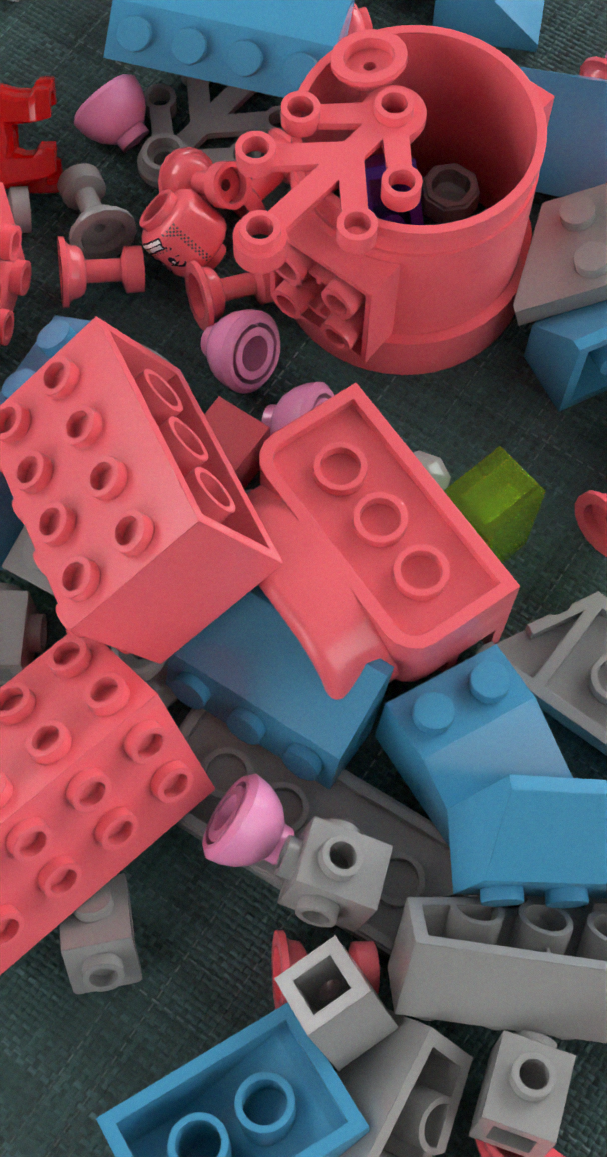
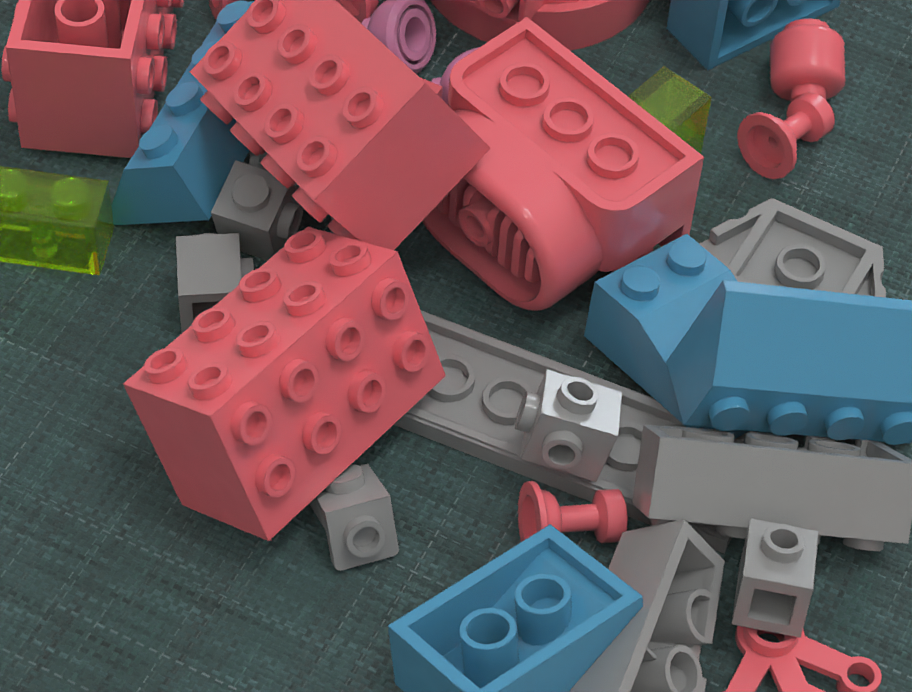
camera: 10 degrees left, 15 degrees down
(246, 825) = (481, 400): bright pink brick -> none
(269, 694) = (485, 286): dark azure slope -> none
(336, 1003) = (596, 508): light grey brick -> none

